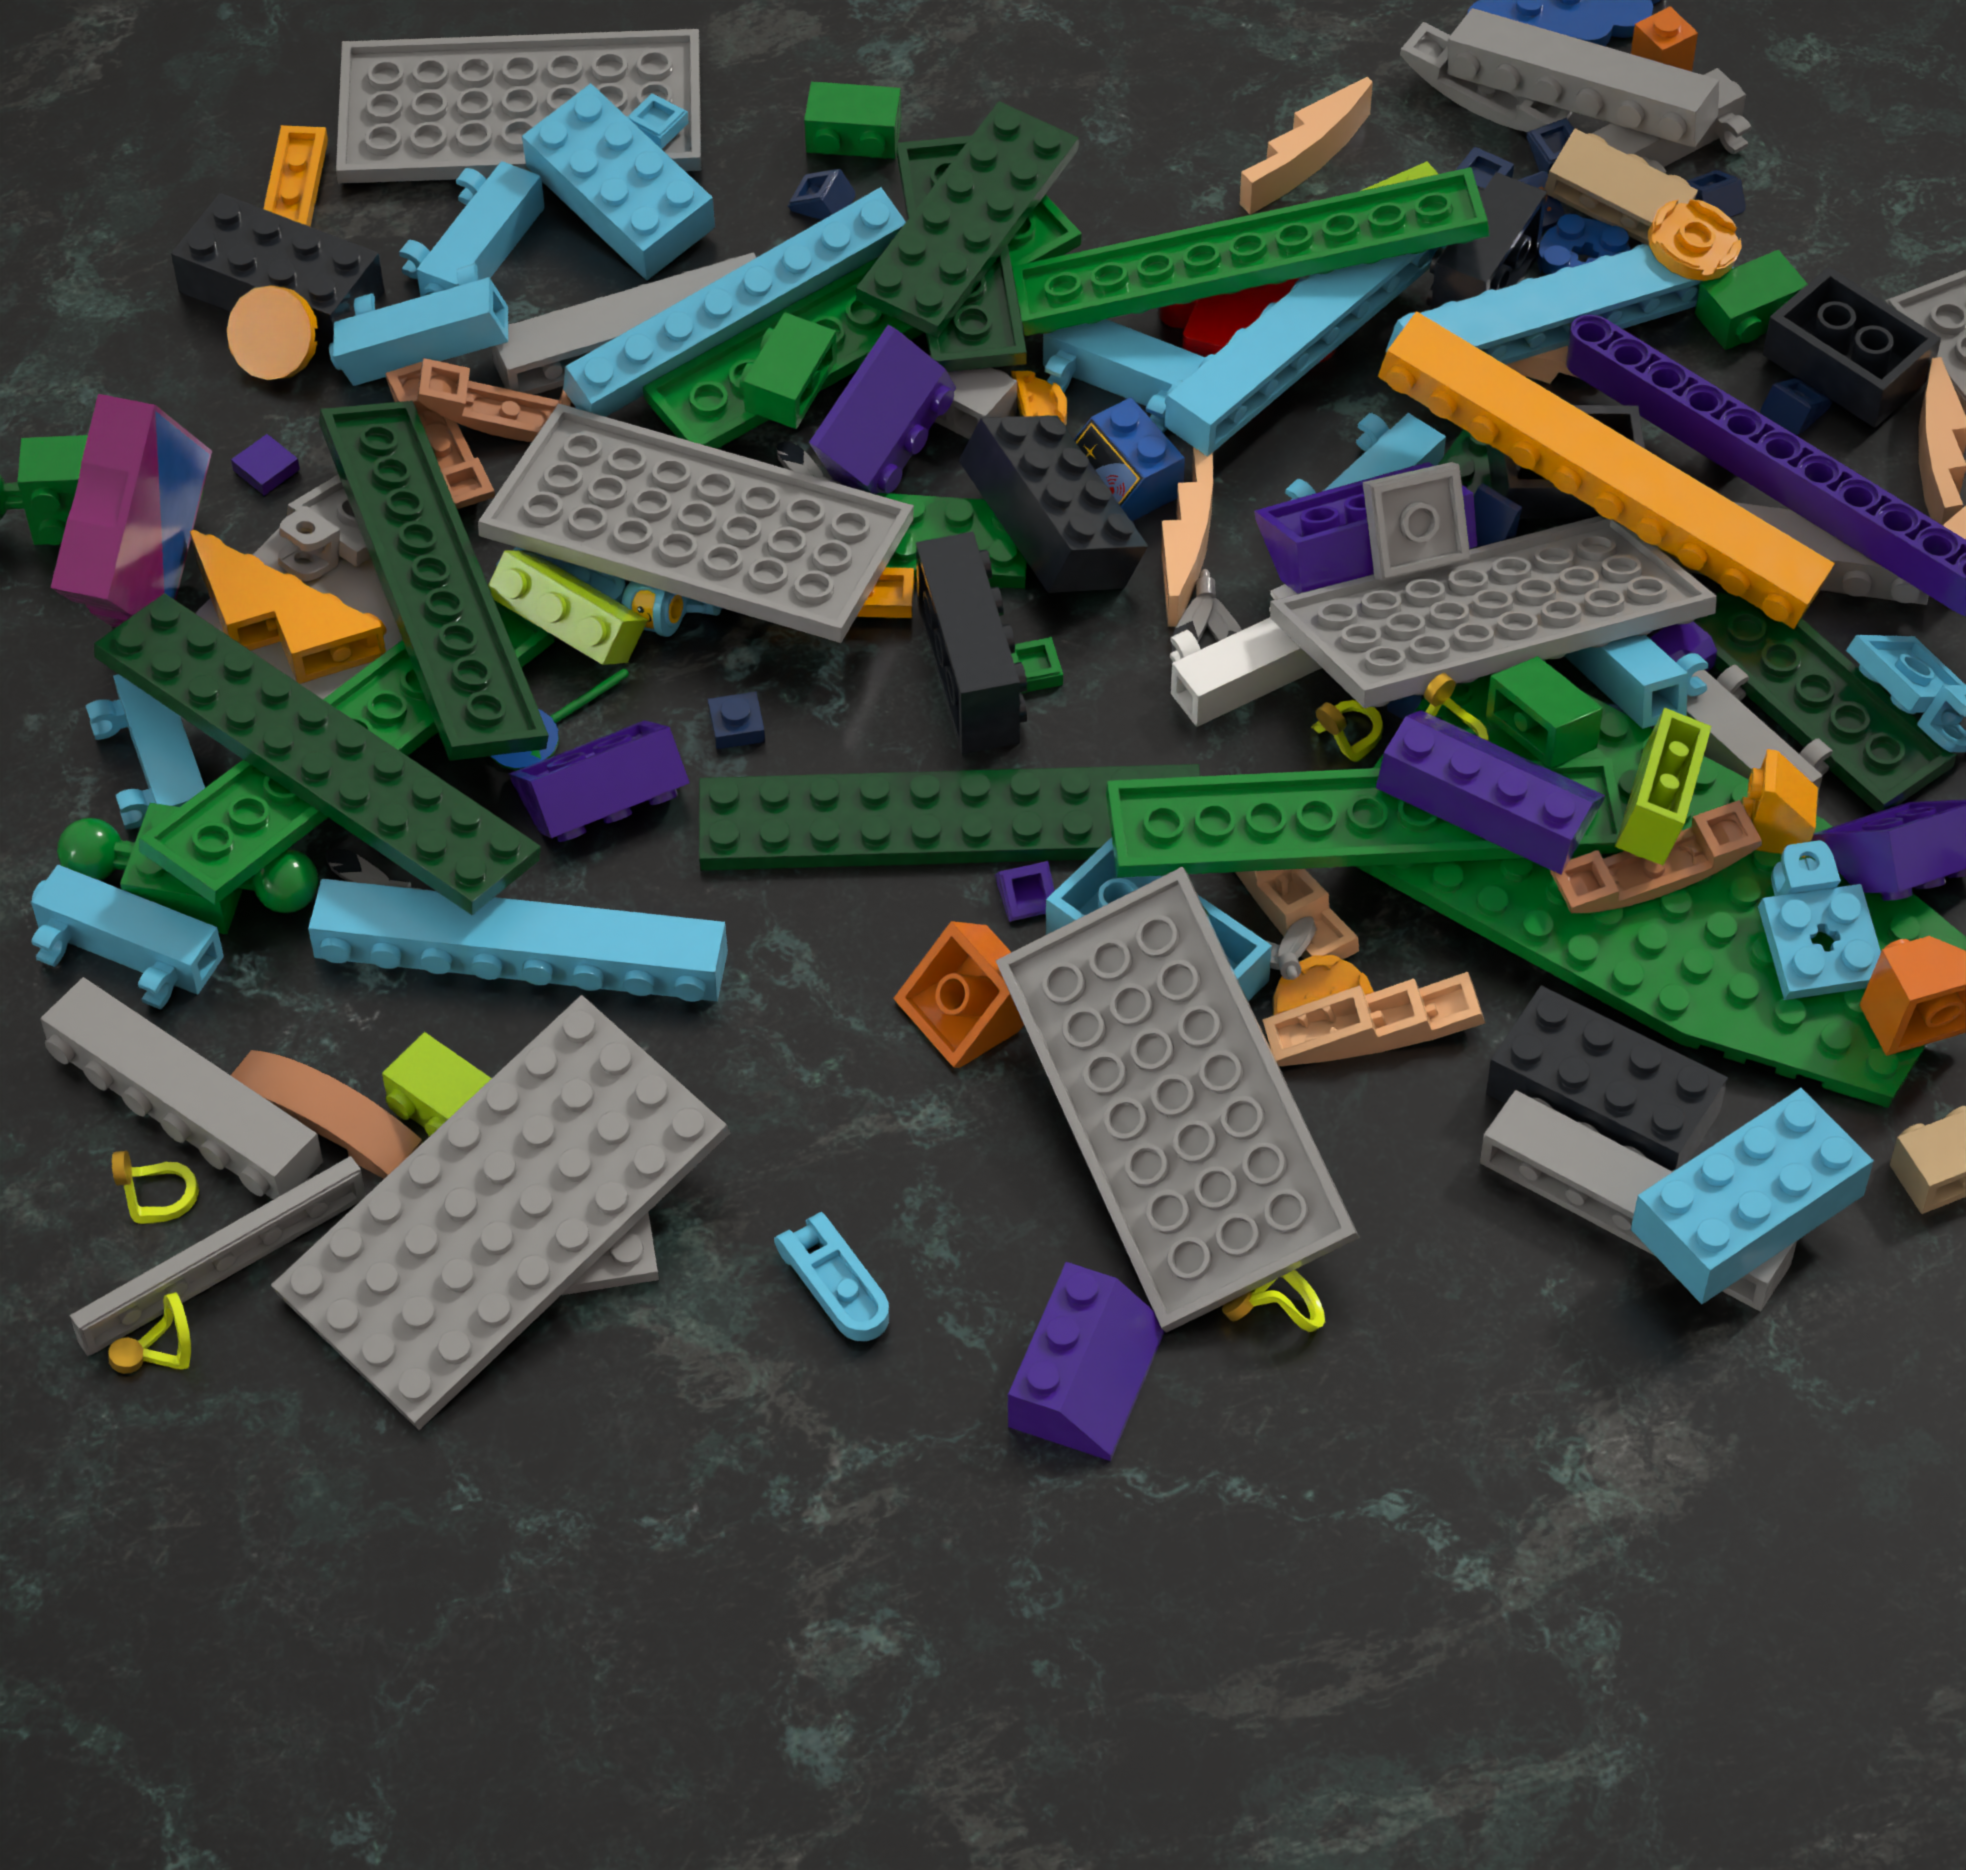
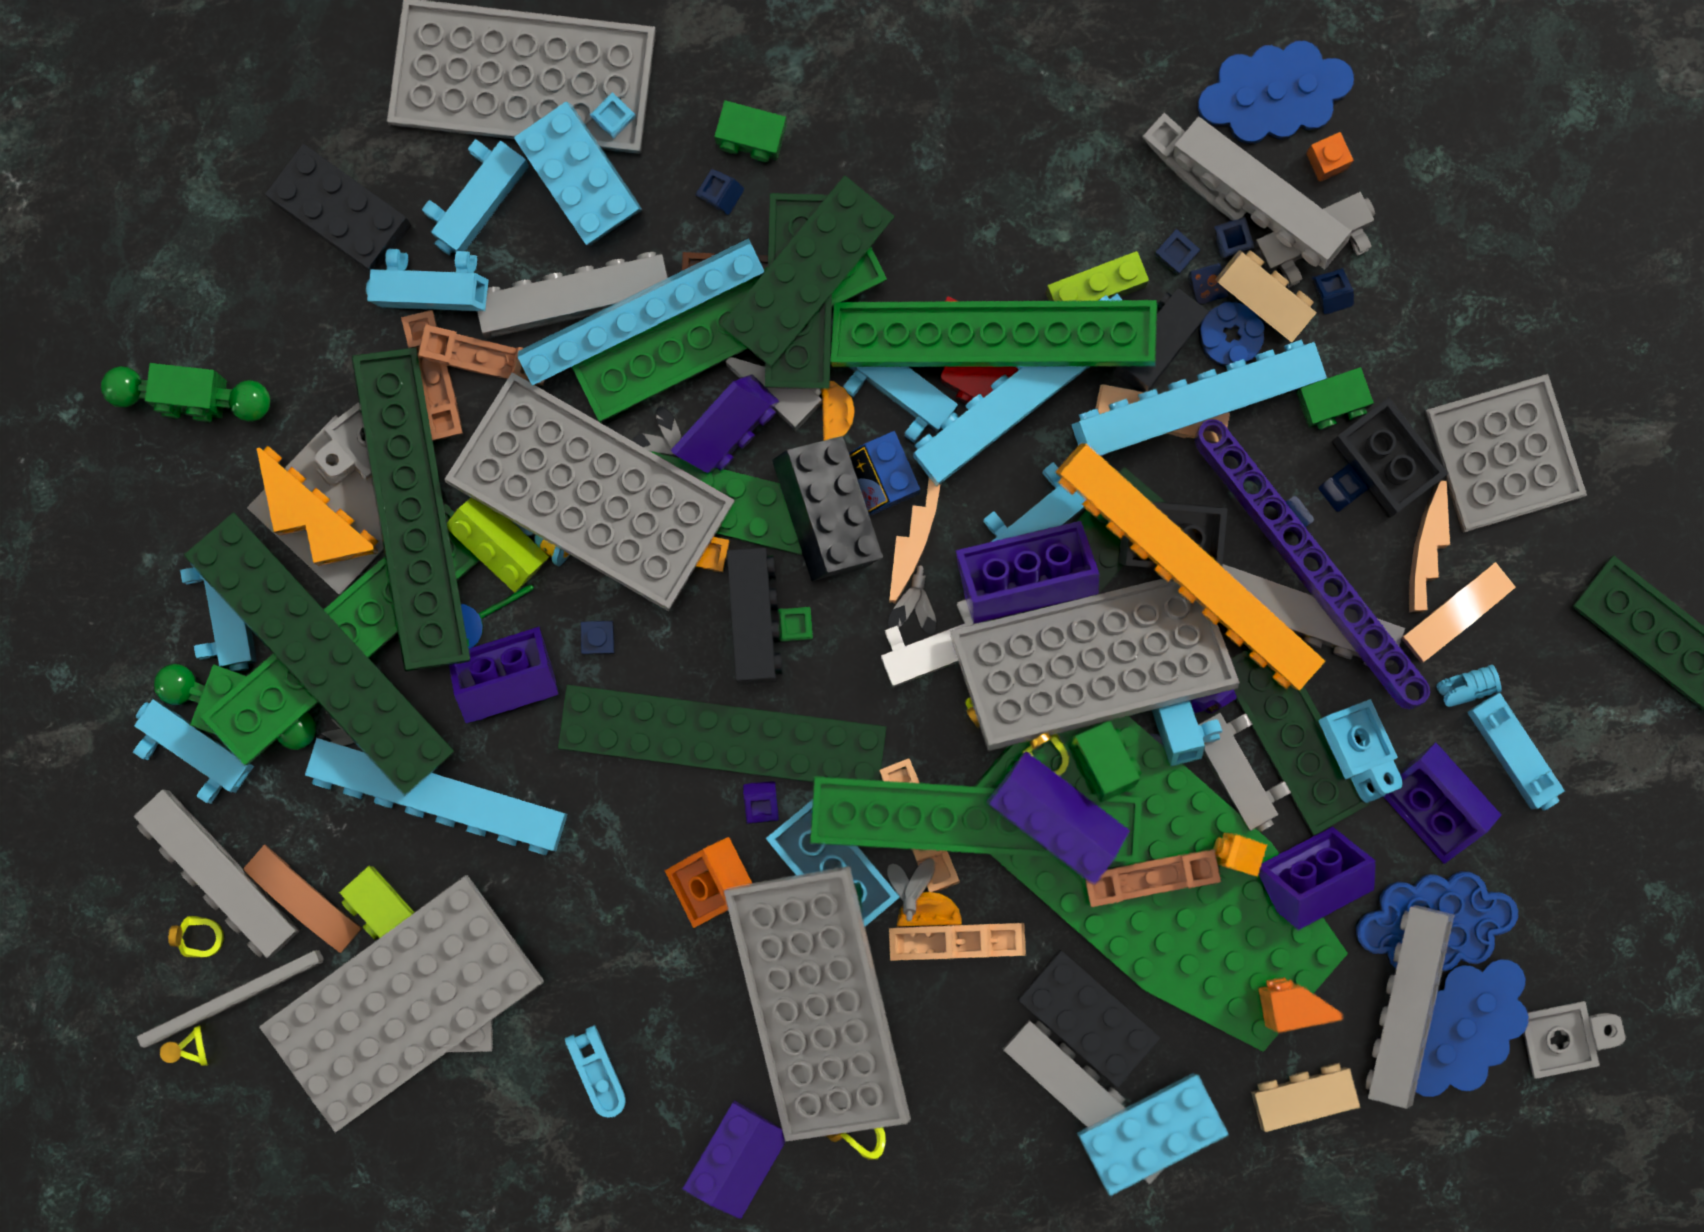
camera: 10 degrees right, 30 degrees up
(130, 510) = (214, 461): magenta tile -> none
(265, 464) = (315, 372): dark purple tile -> none
(272, 332) = (328, 269): light orange tile -> none
(296, 172) = (358, 122): light orange plate -> none
(789, 370) = (667, 376): green brick -> none
(1315, 138) = (1069, 198): light nougat slope -> none
(1416, 521) = (1057, 592): light grey tile -> none
(1494, 516) = (1112, 573): dark blue slope -> none
(1663, 786) = (1168, 833): lime brick -> none
(1694, 240) = (1303, 357): light orange tile -> none
(1812, 903) = (1243, 921): medium azure plate -> none

